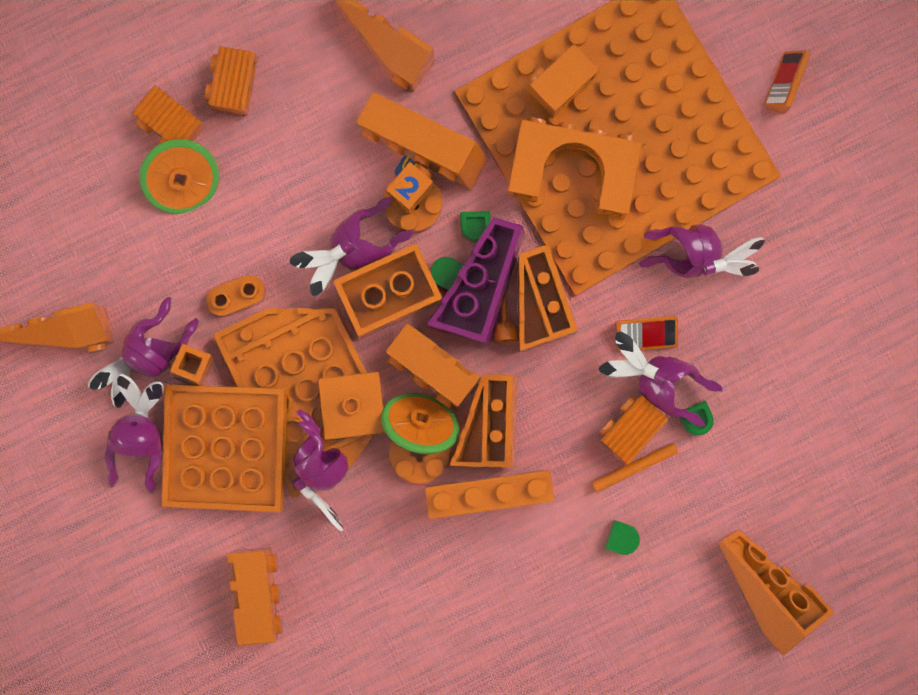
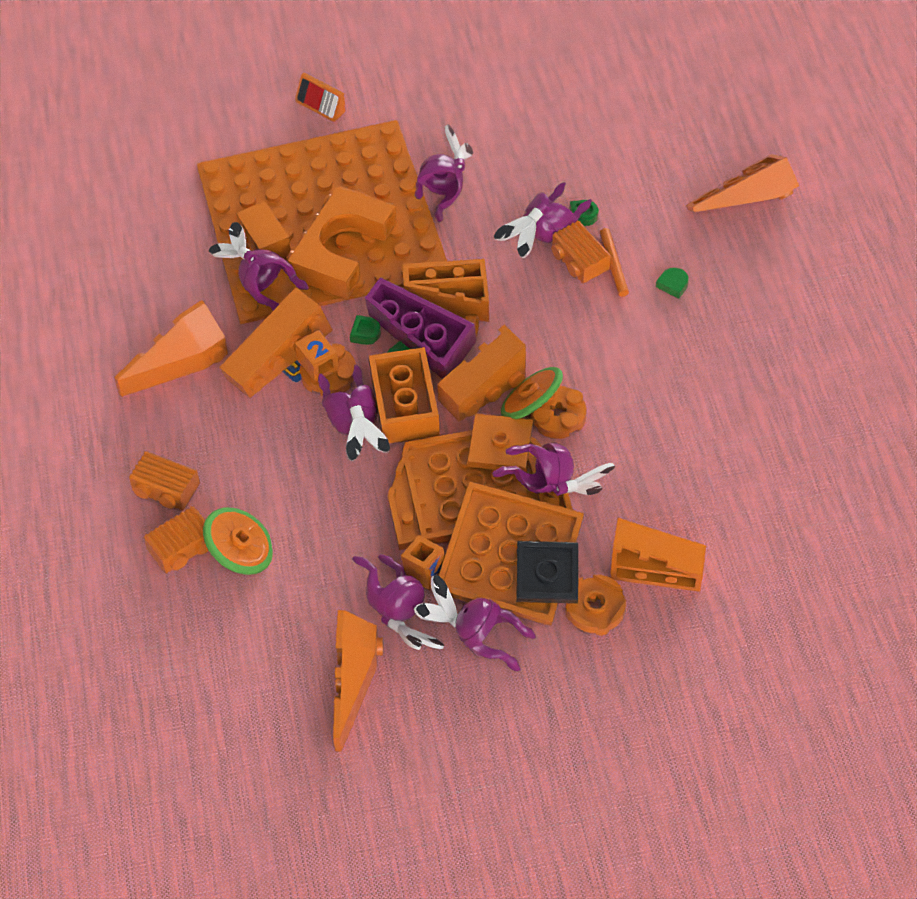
camera: 70 degrees left, 30 degrees down
(180, 553) = (602, 619): none -> orange plate
(206, 491) = (547, 572): none -> black tile
(235, 296) = (367, 522): orange plate -> none
(489, 494) = (609, 352): orange arch -> none
(491, 425) = (552, 343): orange wedge -> none
(508, 88) = (257, 267): none -> magenta hair
(651, 332) = (498, 216): slope -> none

